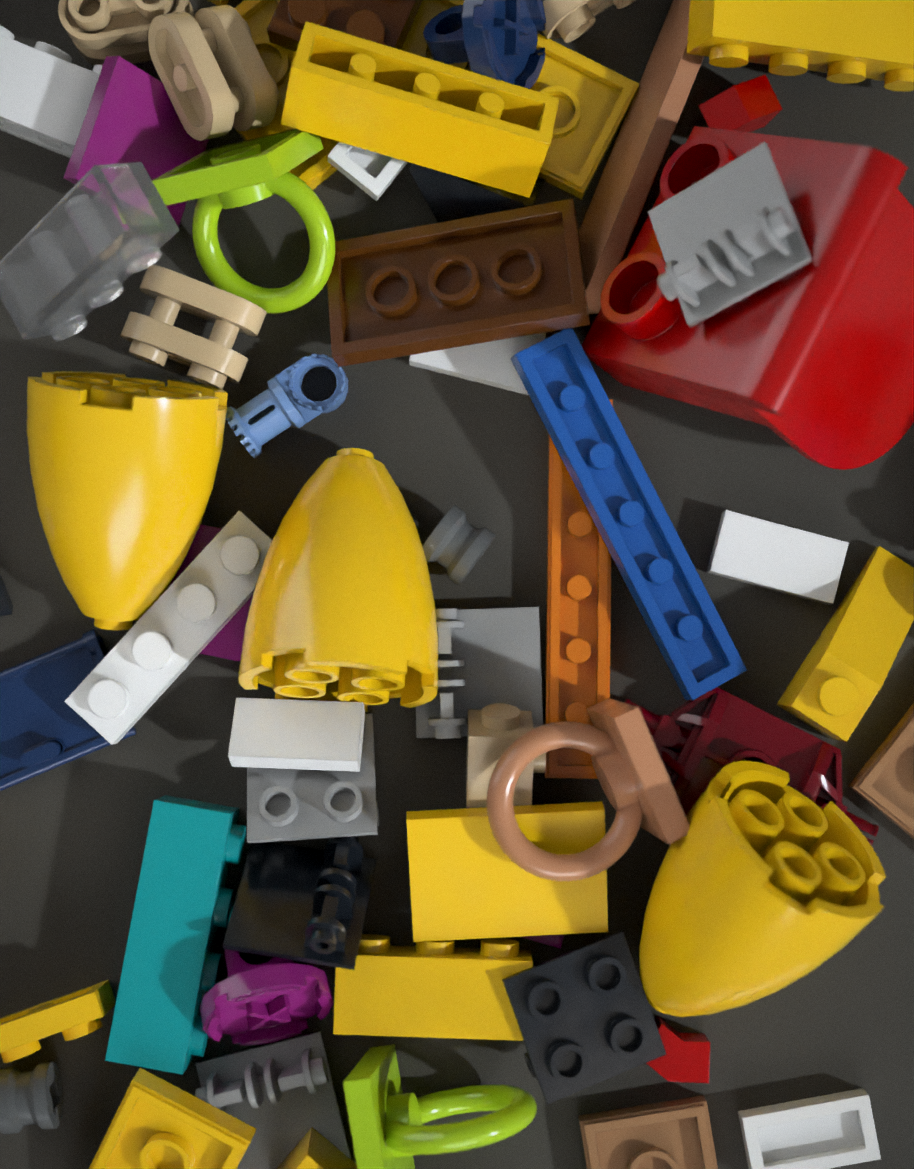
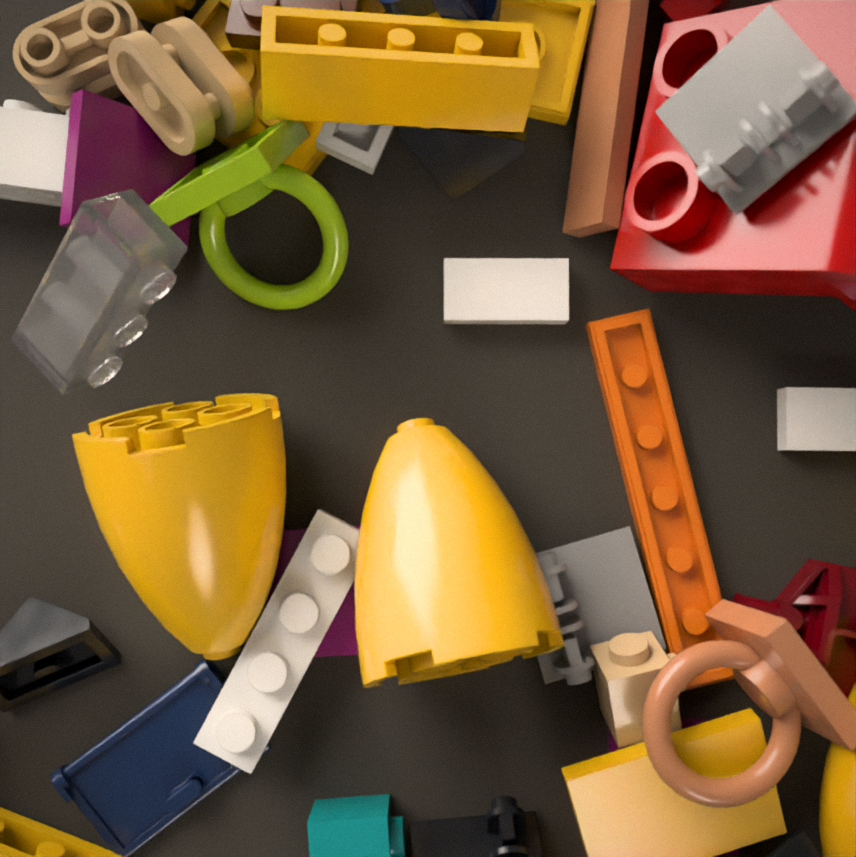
camera: 20 degrees left, 0 degrees up
(210, 359) = (194, 360): tan brick -> none
(284, 404) = (337, 389): medium blue connector -> none
(297, 734) = (430, 715): white tile -> none
(314, 802) = (454, 754): light grey hinge -> none
(457, 283) = (476, 233): reddish brown plate -> none
(457, 544) = (538, 487): dark grey wheel -> none
(628, 513) = (698, 416): blue plate -> none

